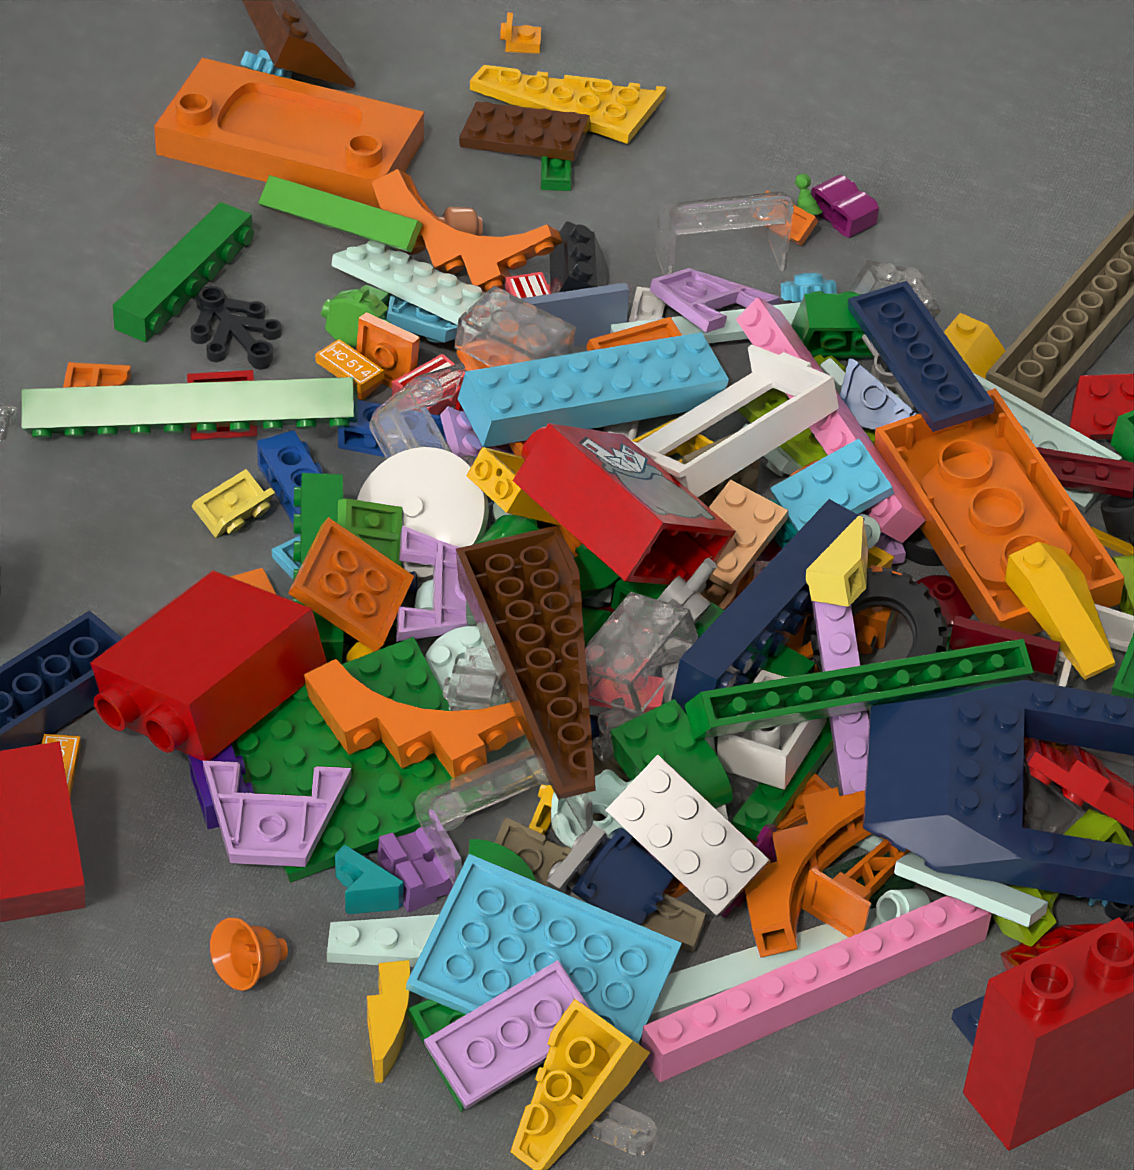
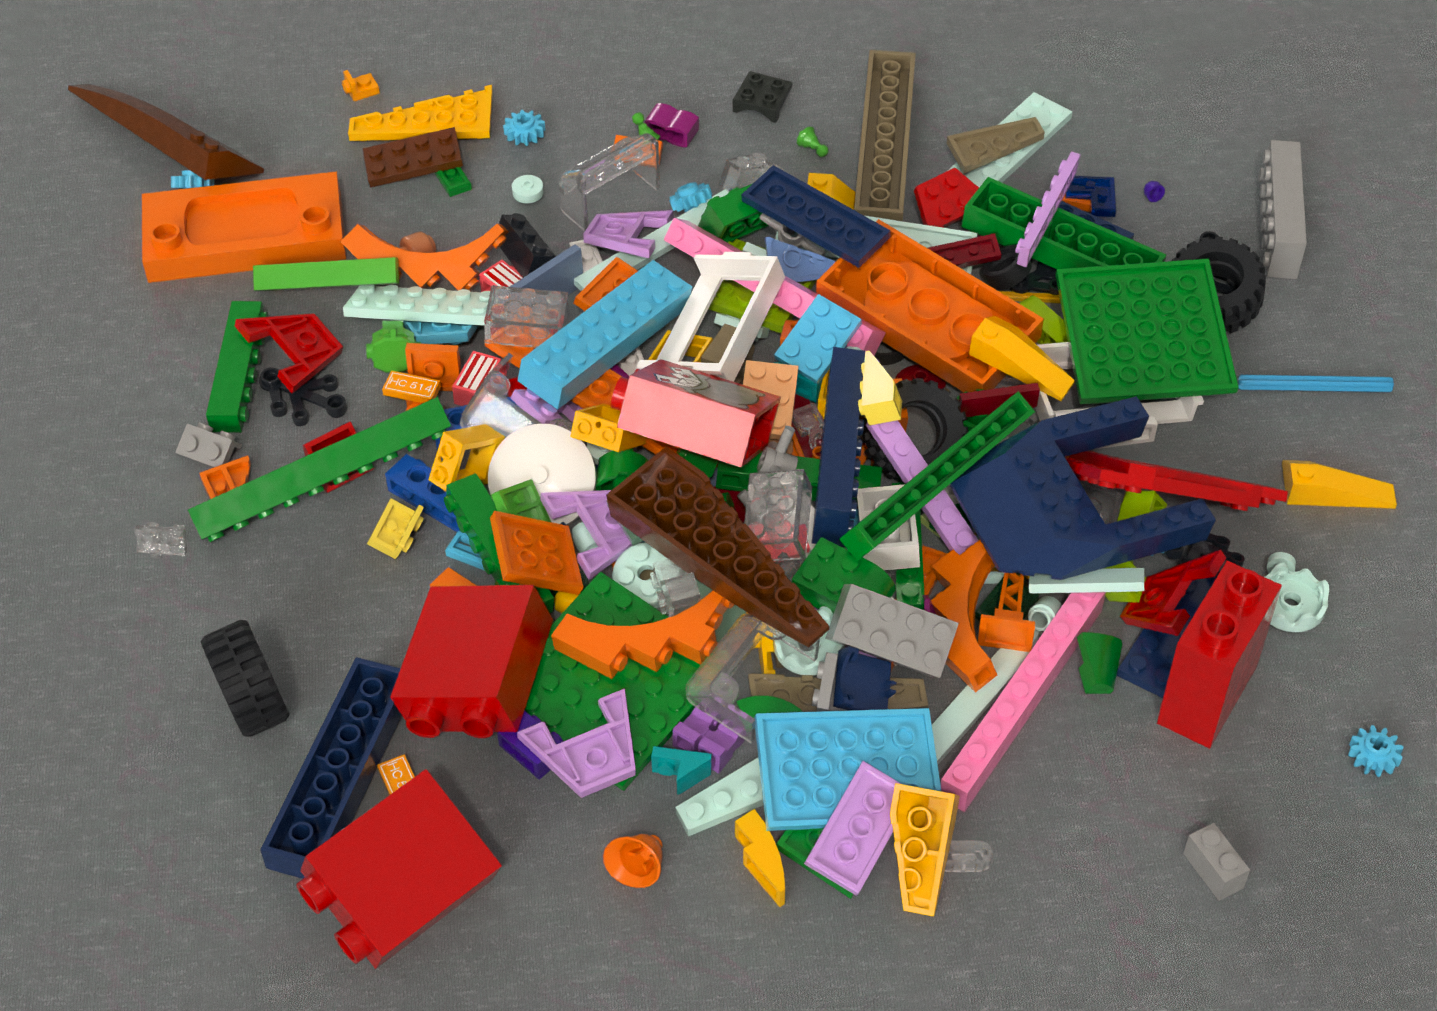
camera: 25 degrees left, 5 degrees up
(95, 339) = (207, 447): none -> light grey bracket
(269, 270) = (301, 338): none -> red wing
(332, 430) = (482, 442): none -> yellow window
(629, 212) = (527, 189): none -> light aqua wheel
(671, 146) = (524, 127): none -> medium azure gear
(935, 989) = (1101, 661): none -> green slope
(974, 212) = (762, 95): none -> pearl dark grey piece
(998, 281) = (809, 139): none -> bright green piece

